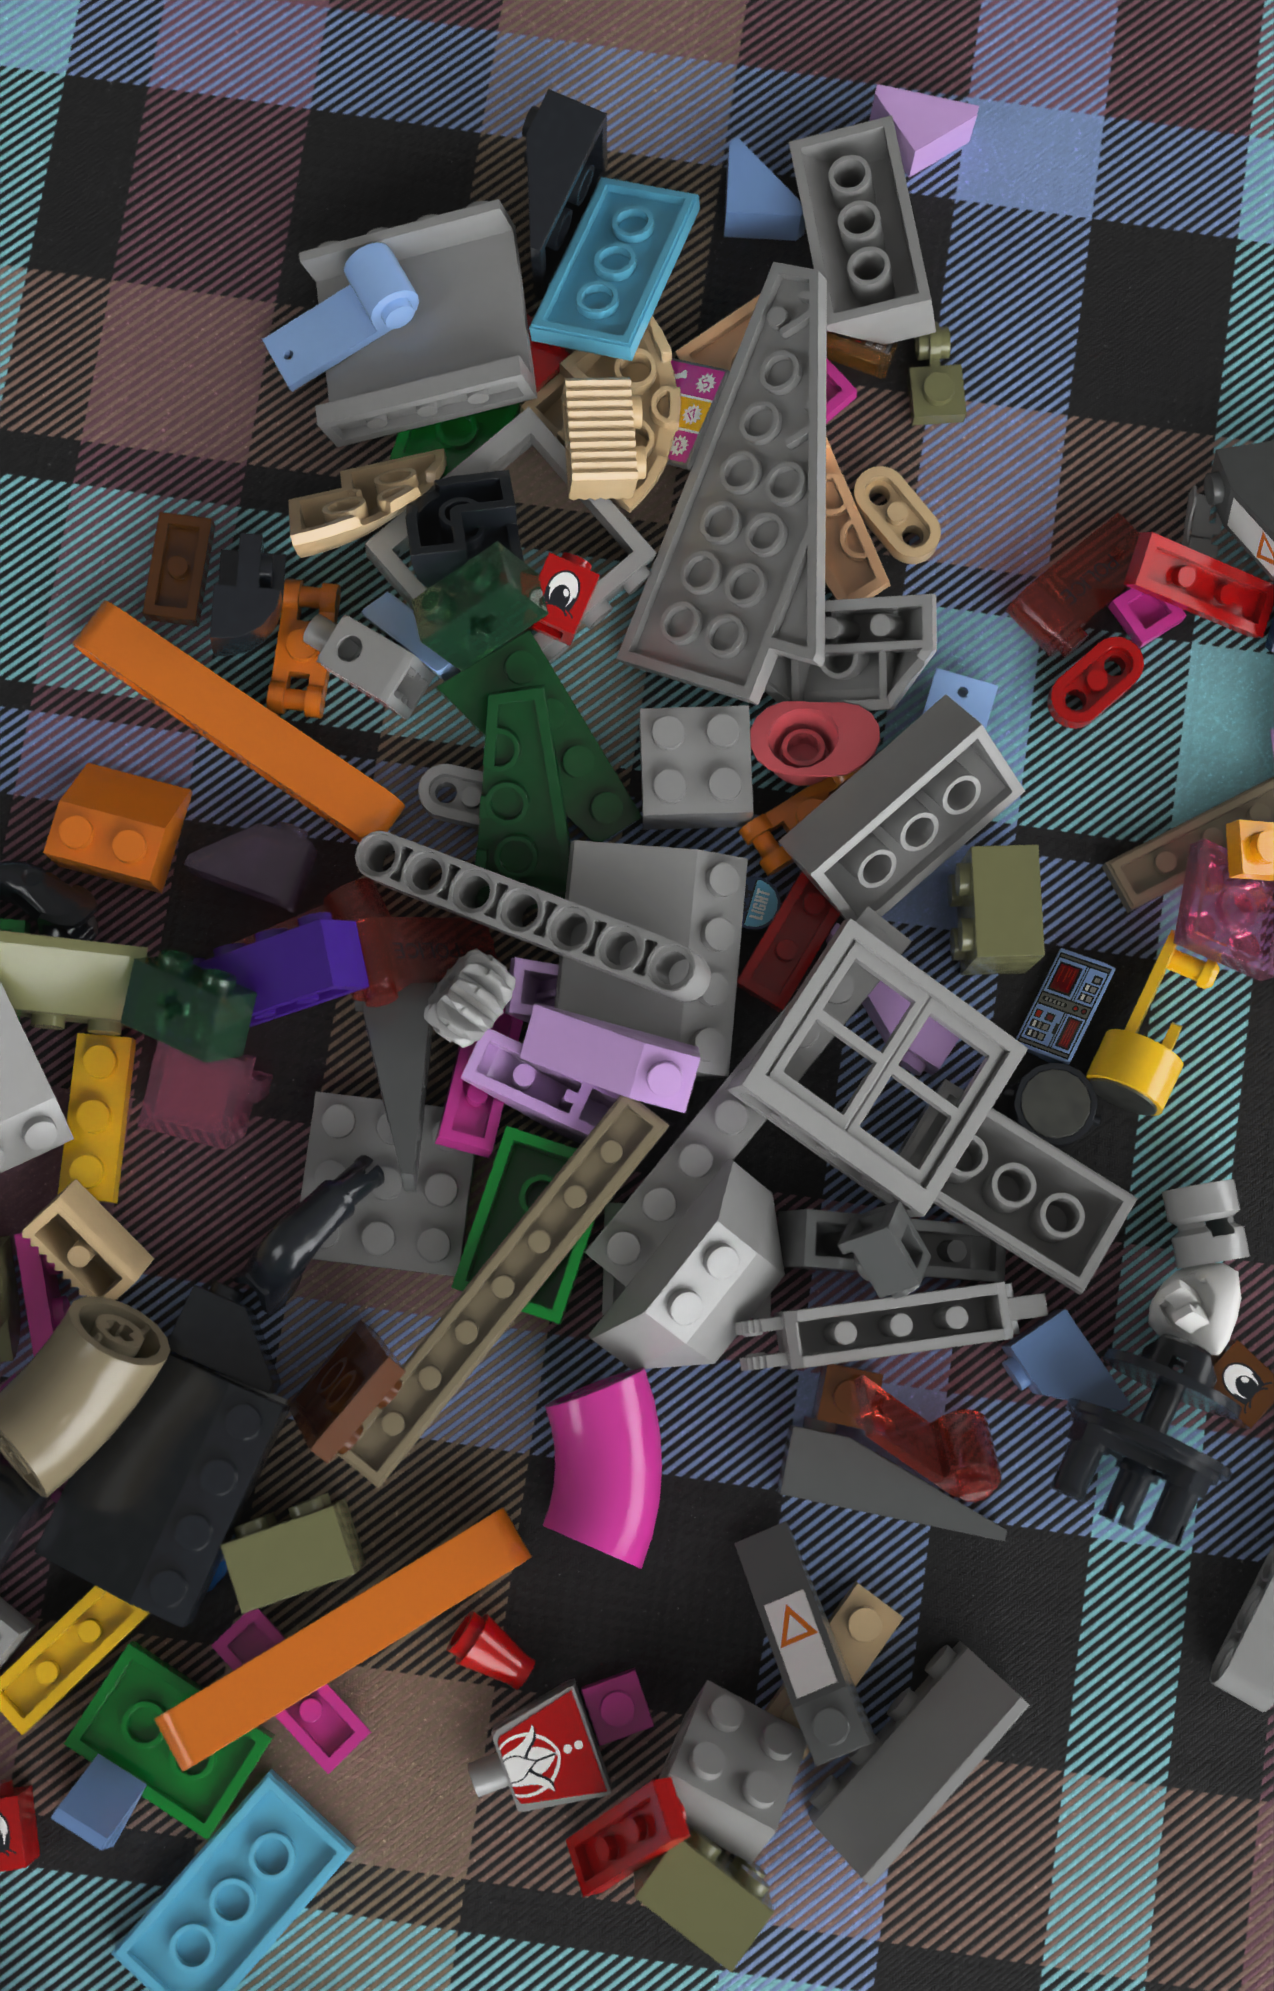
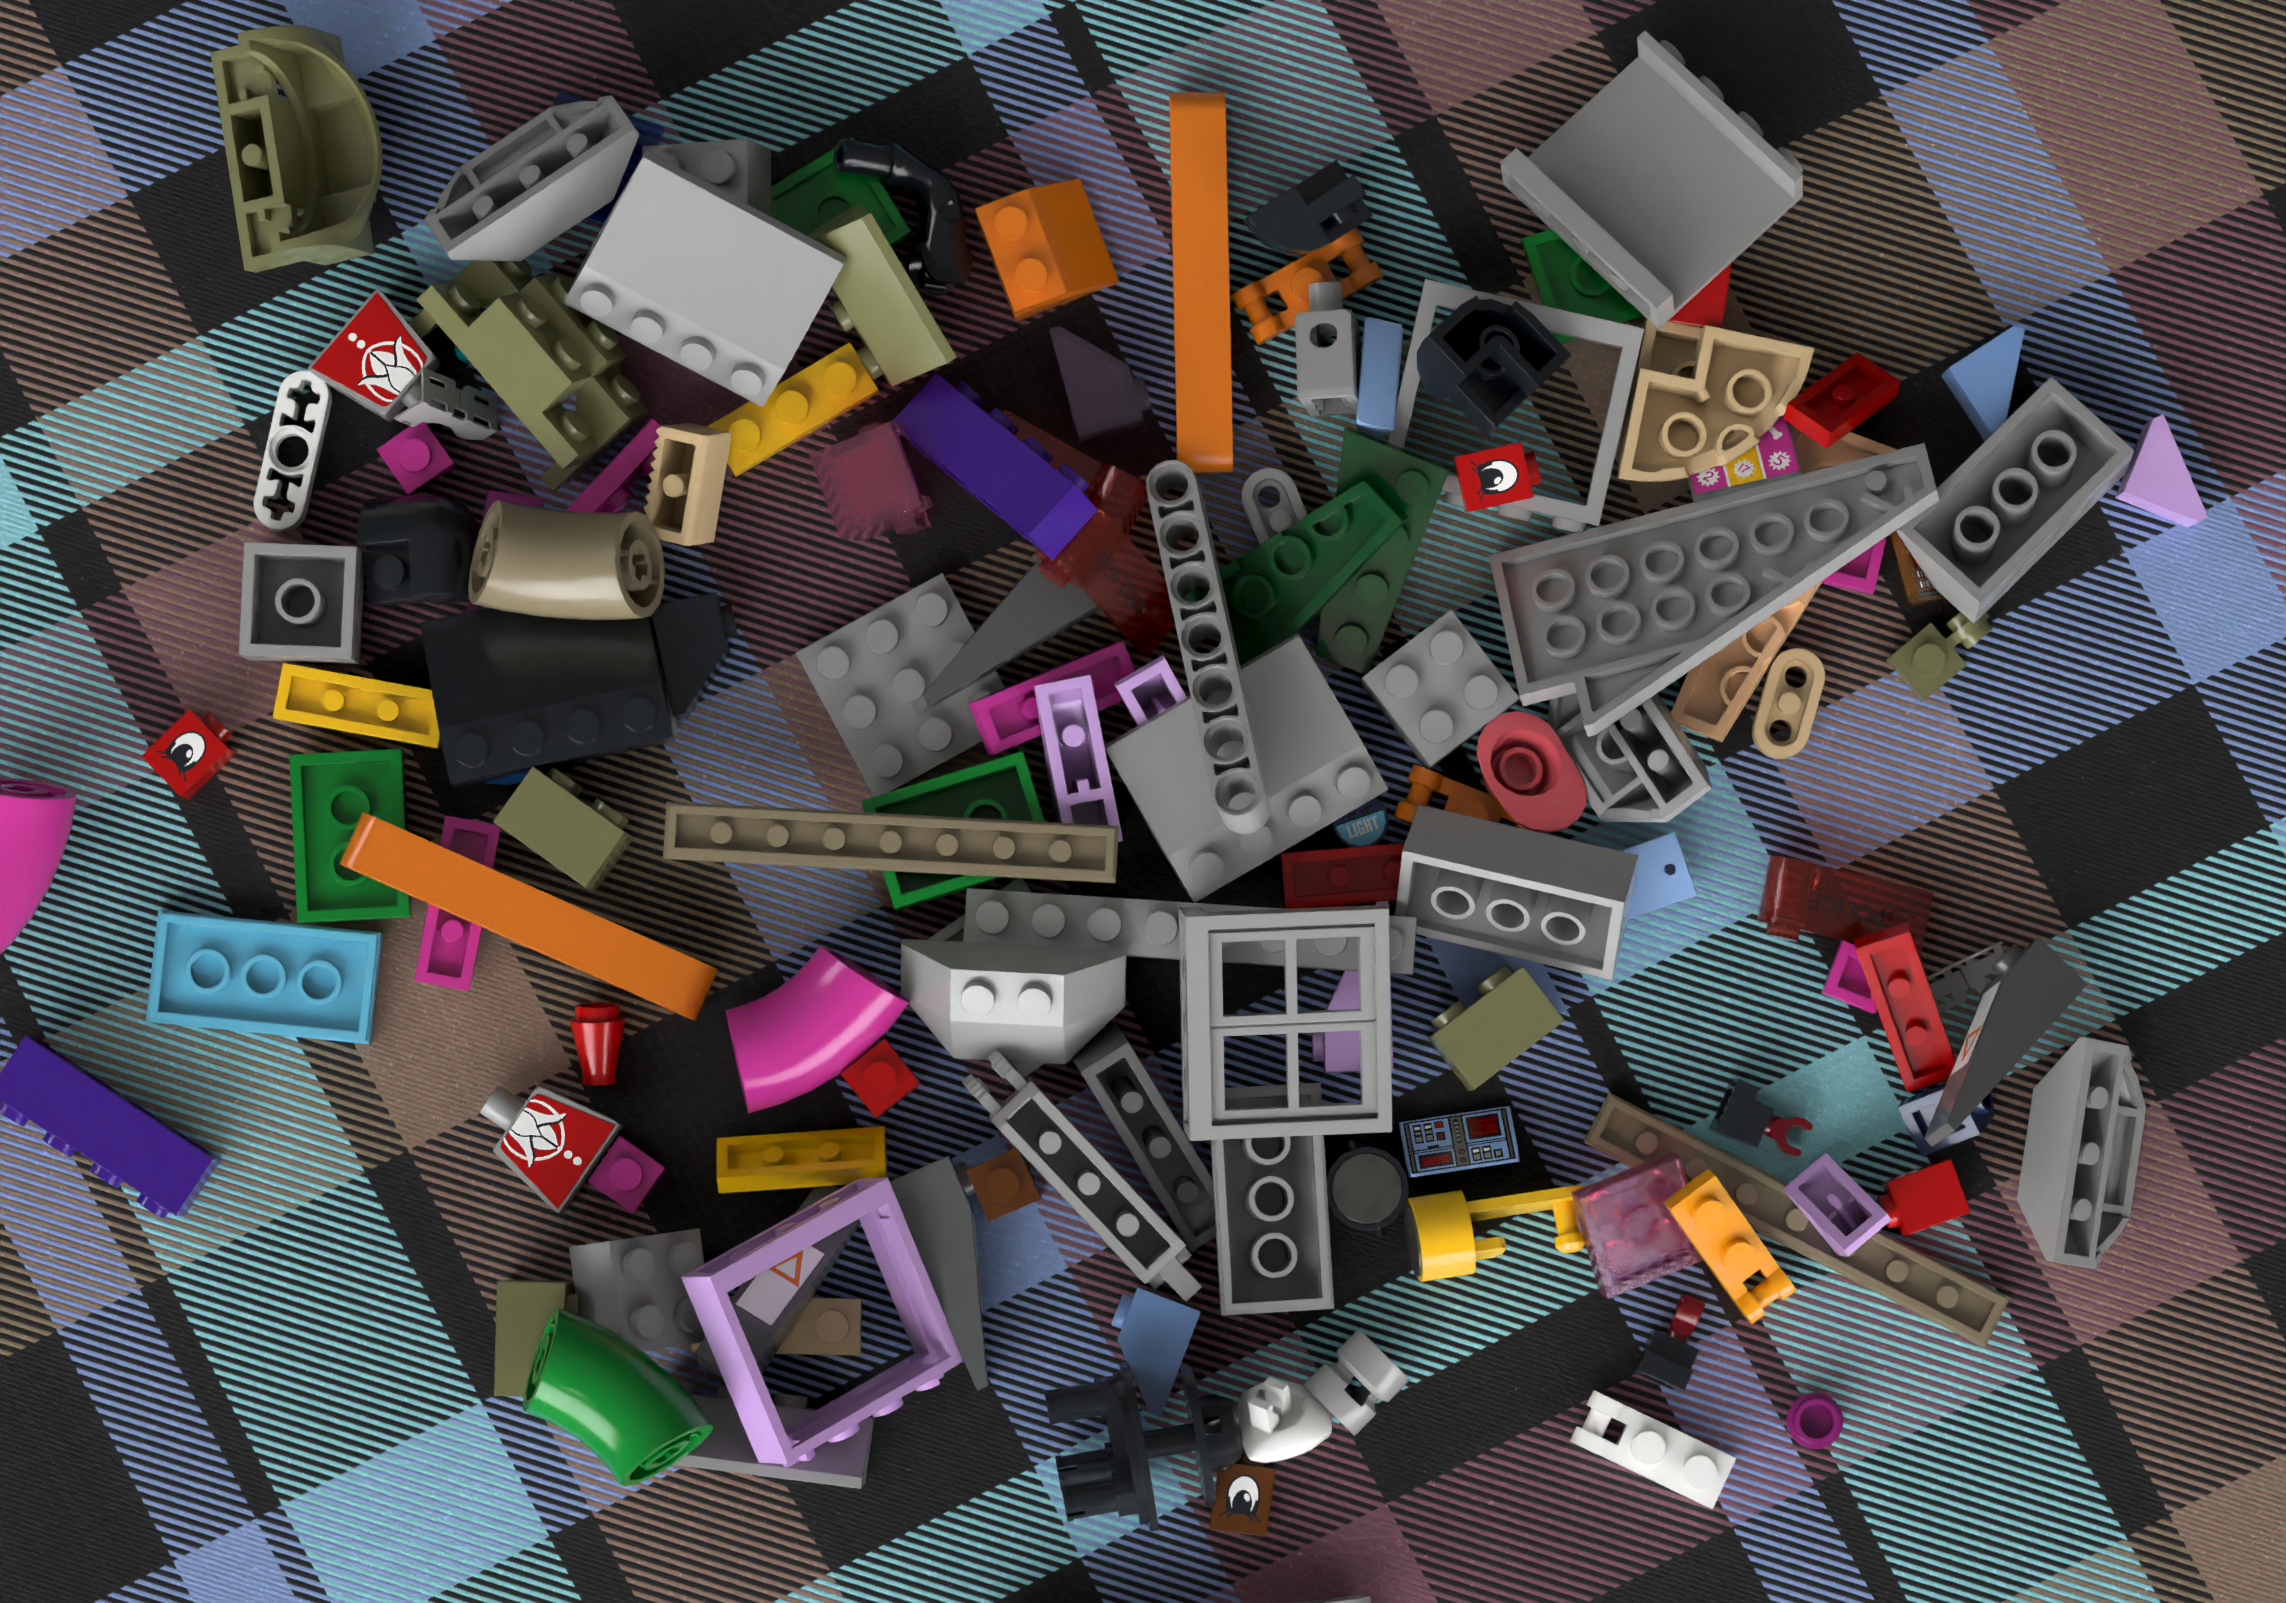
camera: 55 degrees right, 5 degrees up
(100, 1803) = (268, 818): medium blue slope -> none
(179, 569) = (1298, 131): reddish brown plate -> none
(189, 1006) = (933, 426): clear green brick -> none
(291, 1244) = (812, 648): black piece -> none
(345, 1392) = (719, 777): reddish brown plate -> none
(349, 320) = (1616, 112): light blue door -> none
(364, 503) = (1461, 253): tan brick -> none
(469, 998) = (1103, 646): light grey gear -> none
(479, 606) = (1430, 419): clear green brick -> none
(564, 166) = (1882, 199): black slope -> none
(601, 438) = (1656, 411): tan brick -> none
(612, 1056) = (1137, 797): lavender slope -> none
(615, 268) = (1829, 309): medium azure tile -> none
(628, 1836) = (535, 1247): red plate -> none
(689, 1436) = (881, 1078): none -> red brick
(693, 309) = (1842, 400): none -> red plate
(708, 1551) = (800, 1159): none -> yellow plate
(774, 1622) = (909, 1286): none -> lavender window
(808, 1875) = (612, 1398): none -> green brick
(887, 1250) = (1140, 1129): dark grey brick -> none
(950, 1451) = (1016, 1299): clear red door -> none
(1093, 684) = (1761, 975): red plate -> none
(1202, 771) = (1748, 1120): none -> black piece

